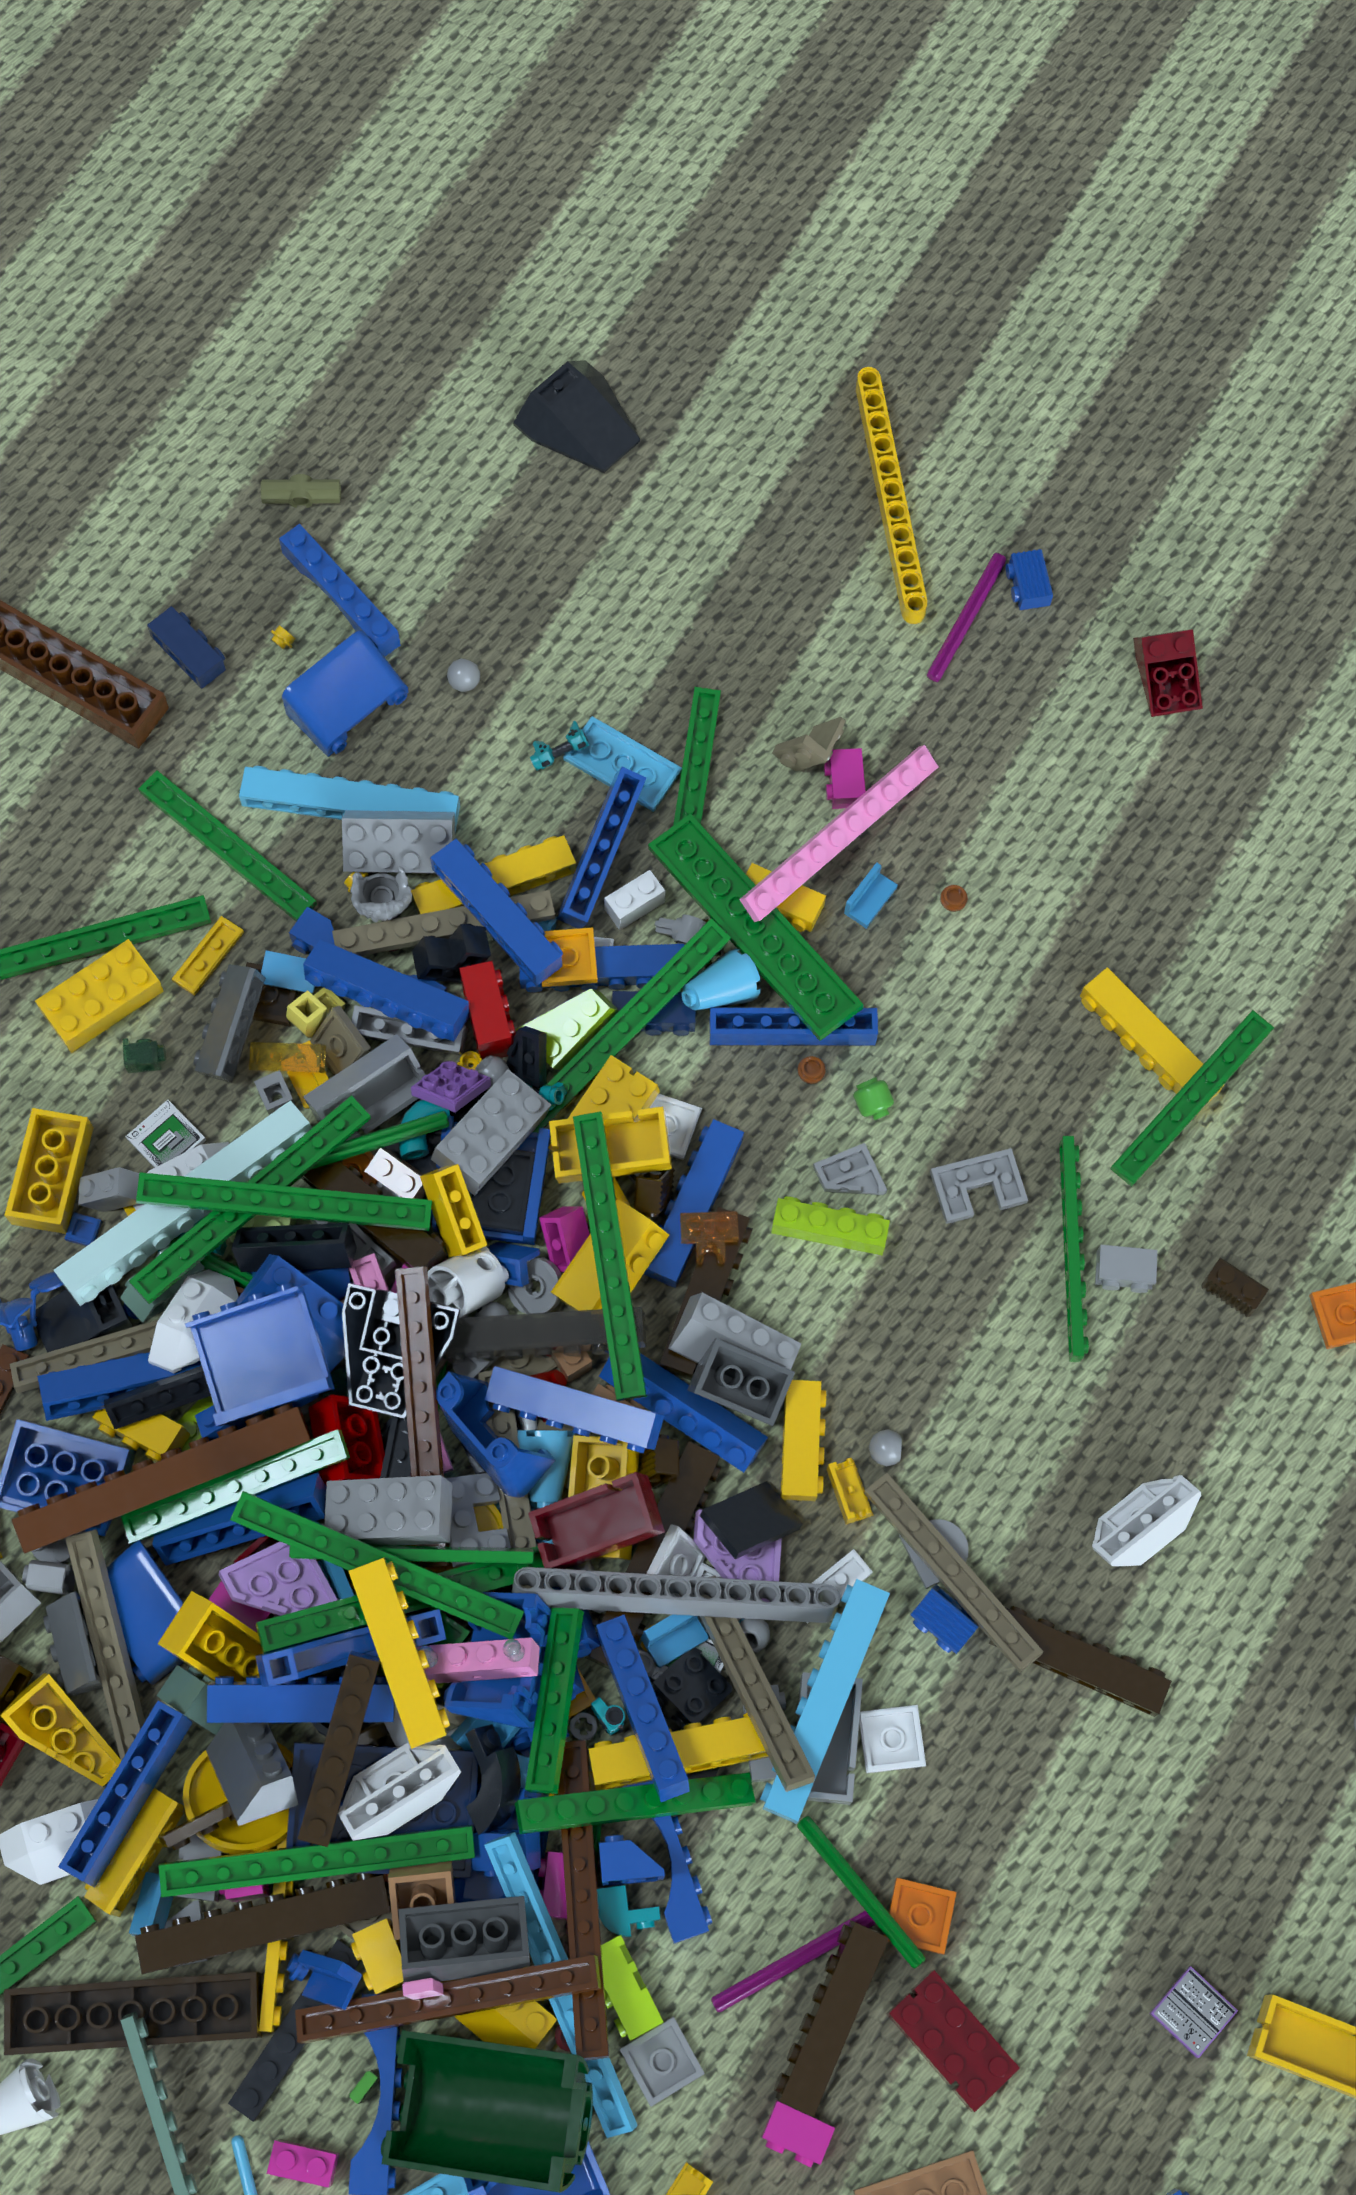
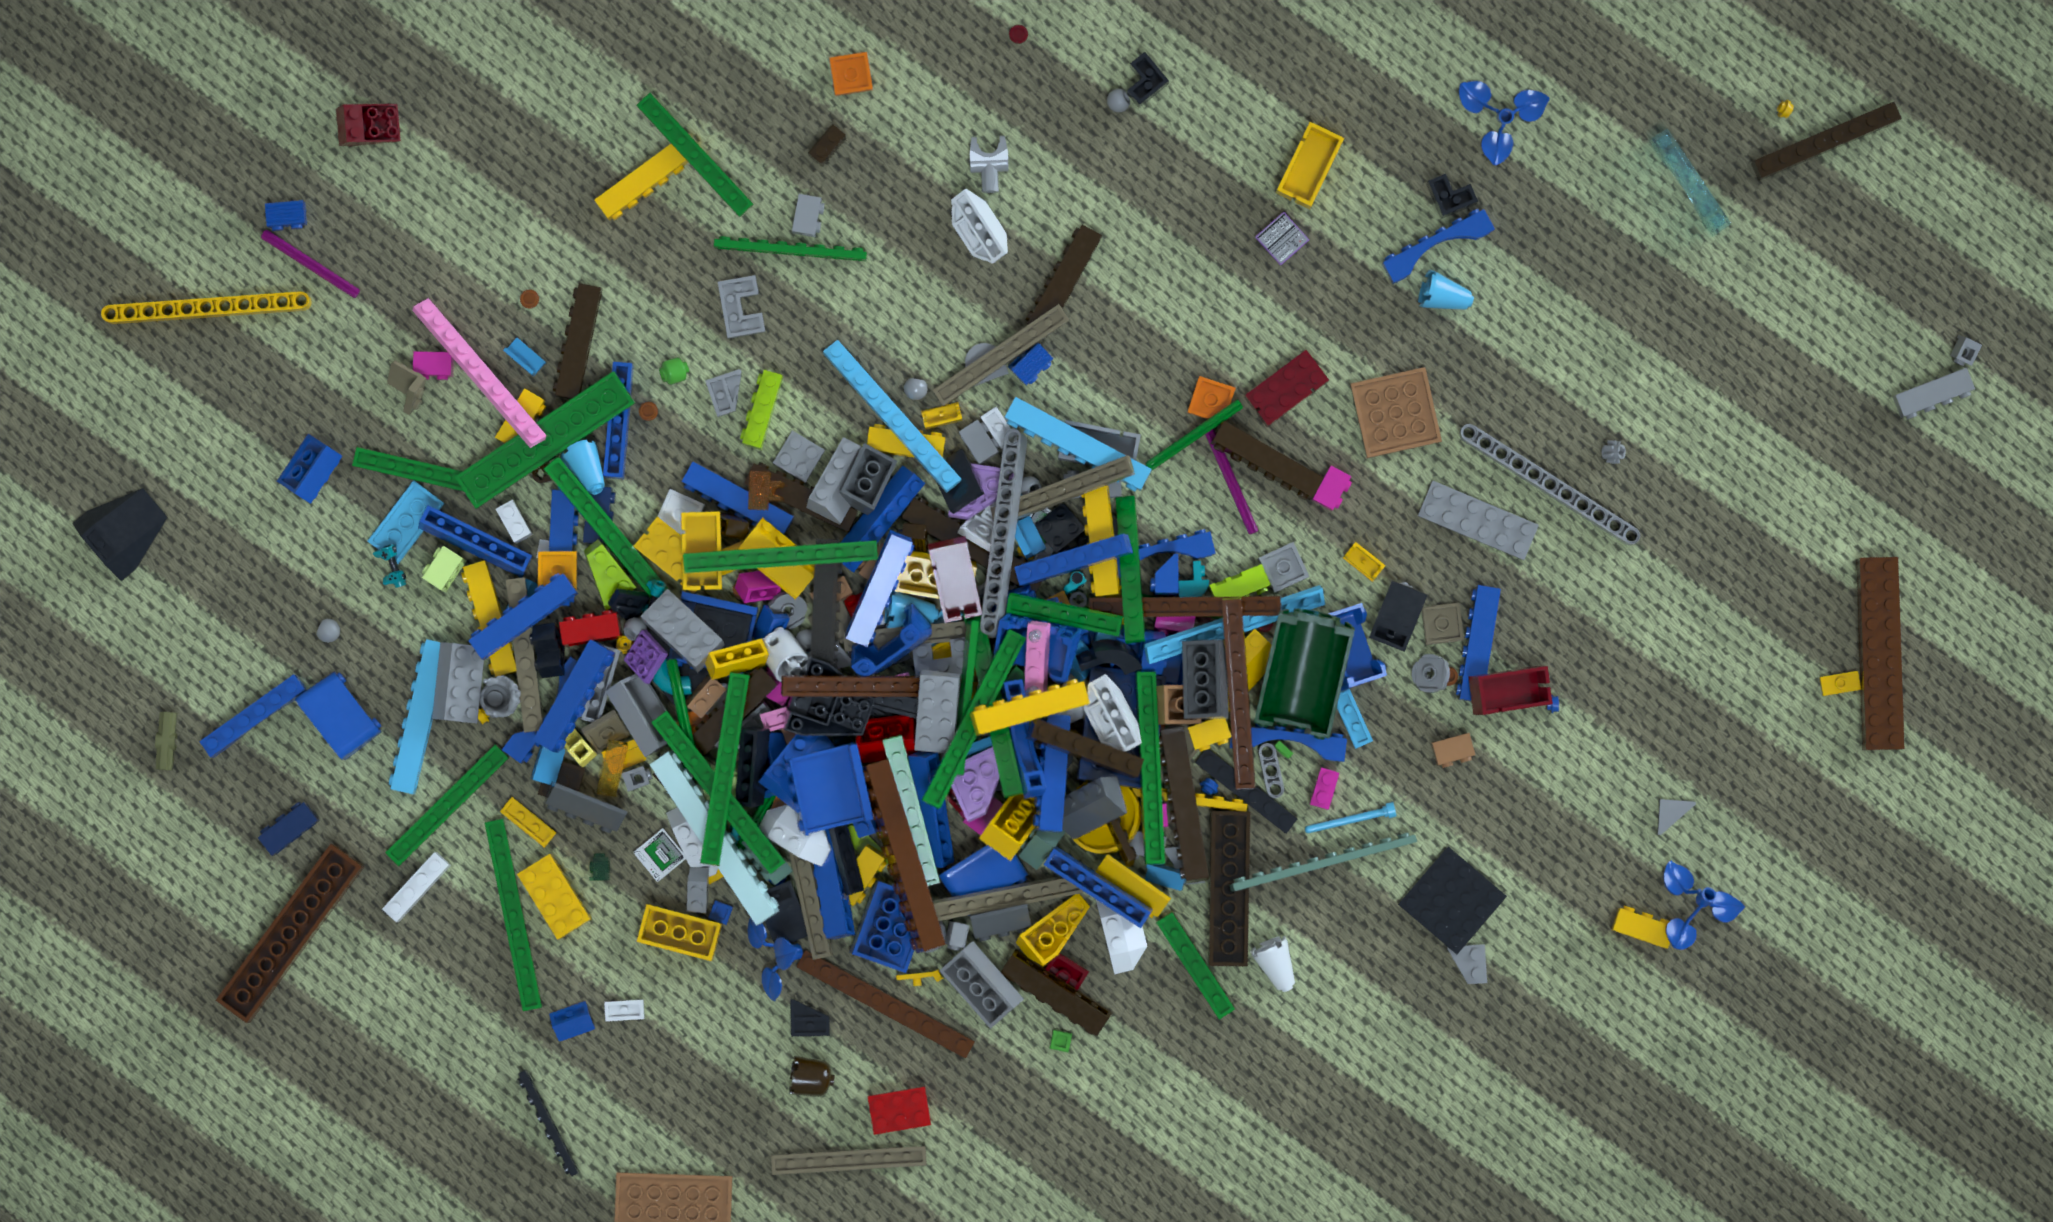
camera: 80 degrees left, 15 degrees up
(109, 813) = (416, 887): none -> white brick
(282, 637) = (285, 759): yellow plate -> none
(313, 2066) = (1271, 761): none -> light grey beam
(330, 1981) = (1220, 766): blue panel -> none
(422, 1988) = (1231, 706): bright pink tile -> none
(559, 810) = (443, 568): none -> yellowish green brick
(680, 929) = (541, 489): light grey axle -> none
(684, 636) = (309, 468): none -> blue slope
(766, 1286) = (798, 456): none -> light grey plate
(815, 1550) = (979, 442): none -> light grey brick
(839, 1415) = (892, 416): none -> medium azure plate
(891, 1739) = (1102, 405): white tile -> none
(904, 965) = (578, 341): none -> dark brown brick
(1243, 1530) = (989, 164): none -> light grey connector

